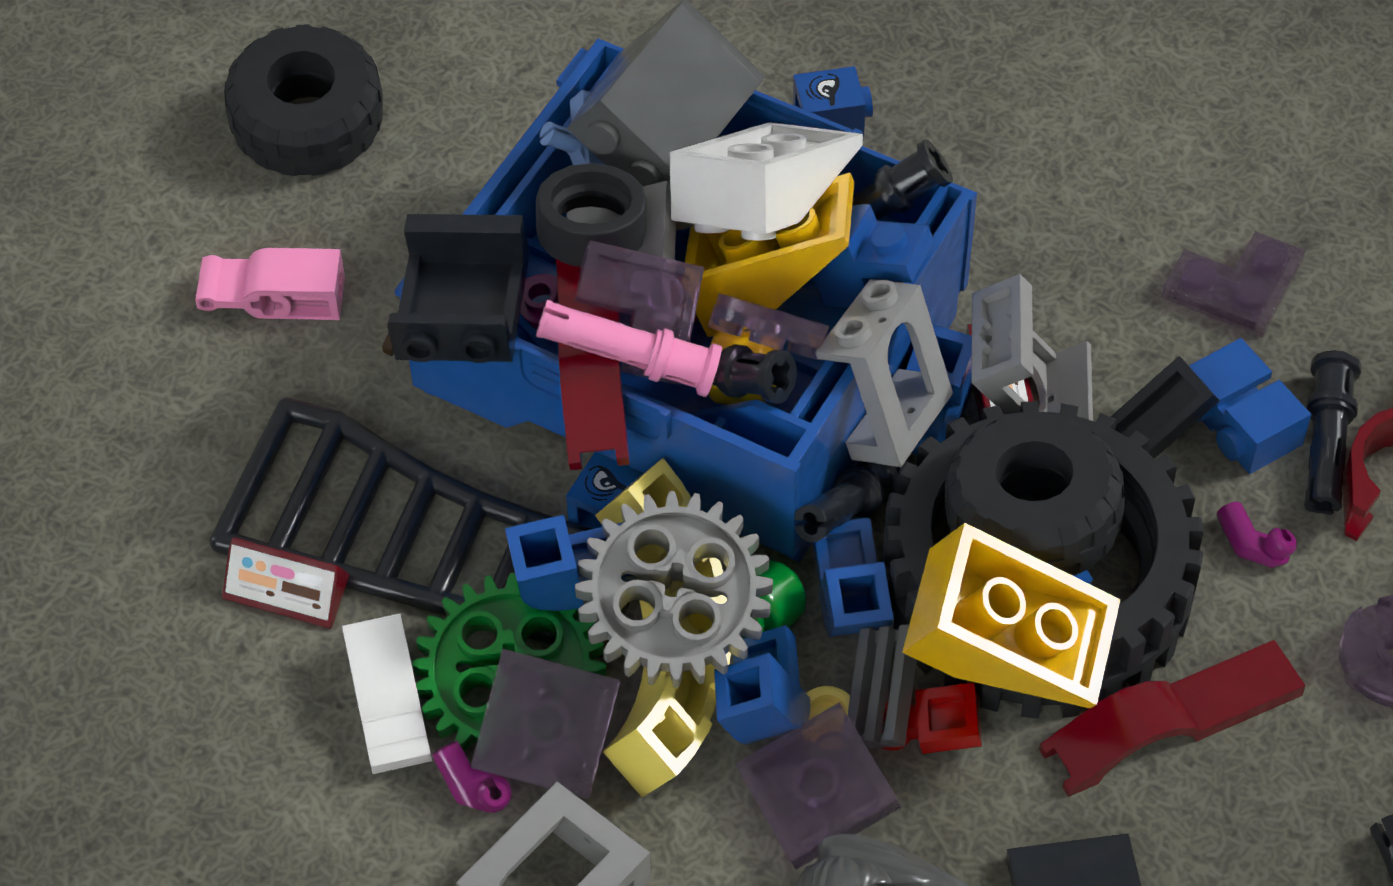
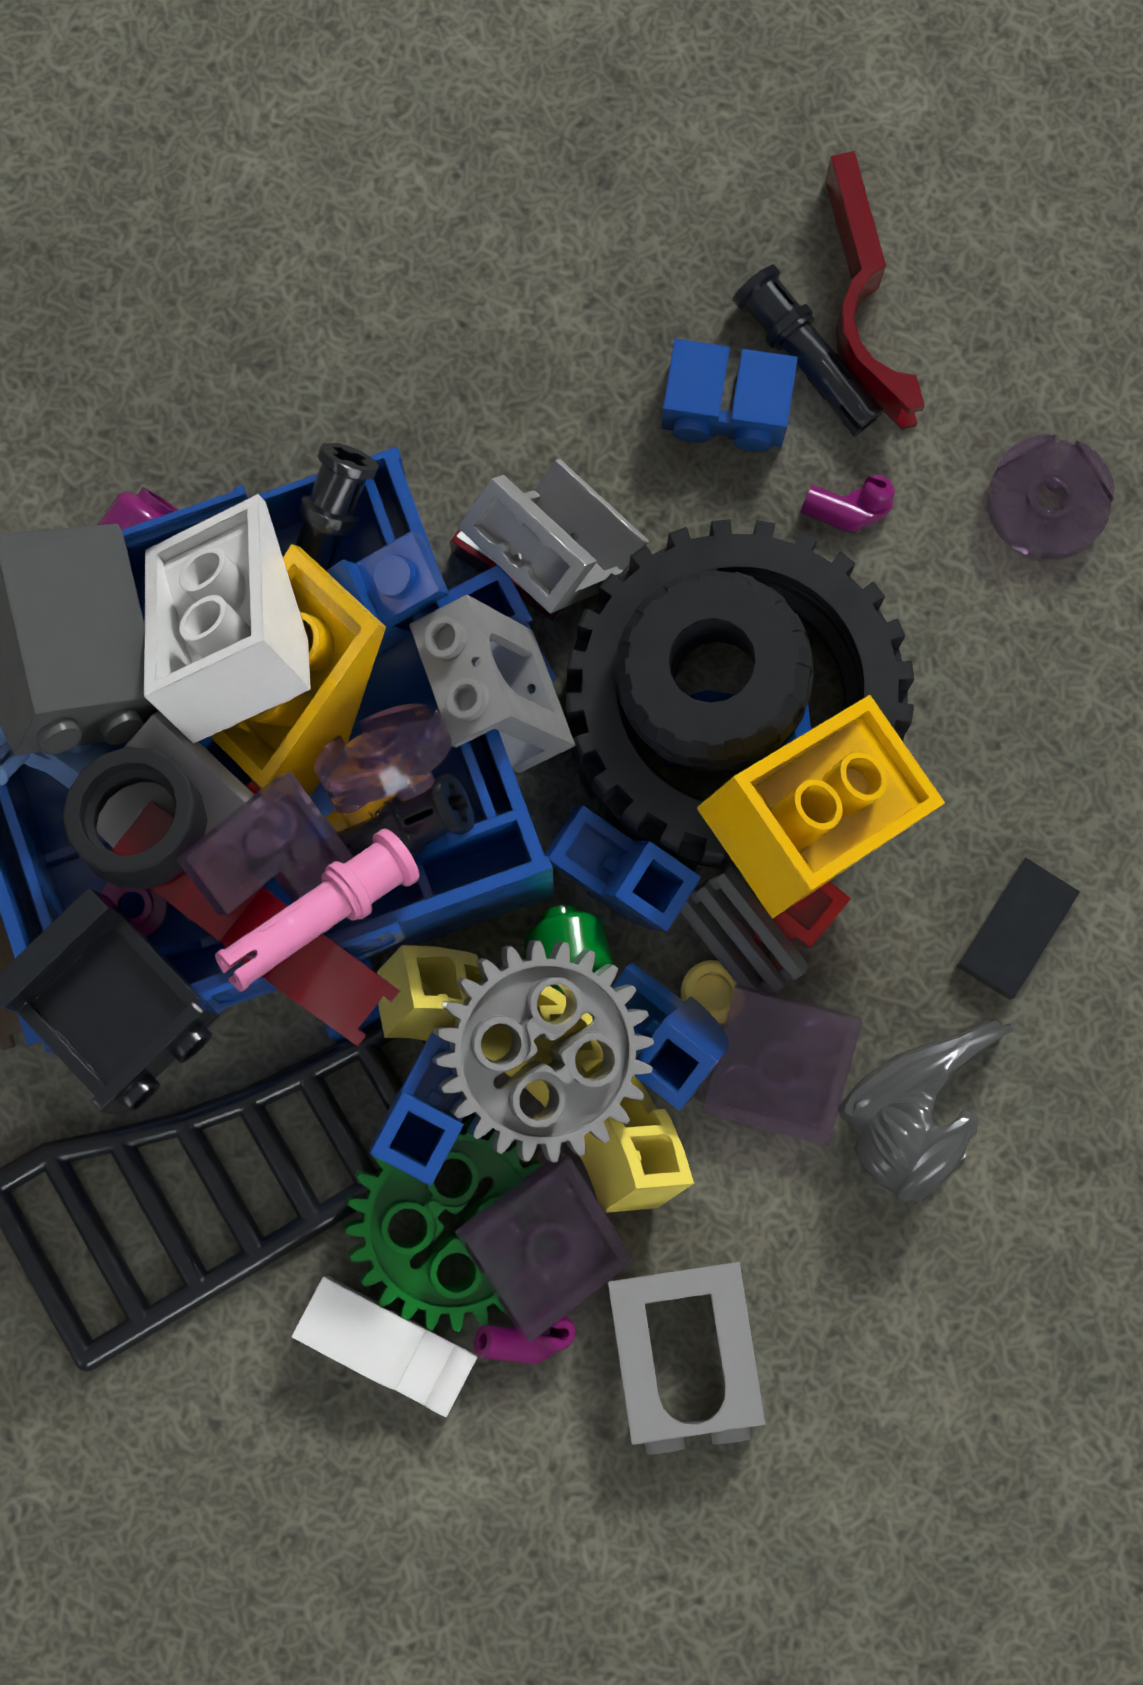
camera: 50 degrees left, 25 degrees up
(283, 583) = (186, 1341): slope -> none
(834, 96) = (102, 436): blue brick -> none
(855, 493) = (545, 796): black pin -> none
(1160, 710) = (956, 711): dark red piece -> none
(1166, 406) = (679, 472): black tile -> none
(1237, 295) = (609, 286): clear purple plate -> none

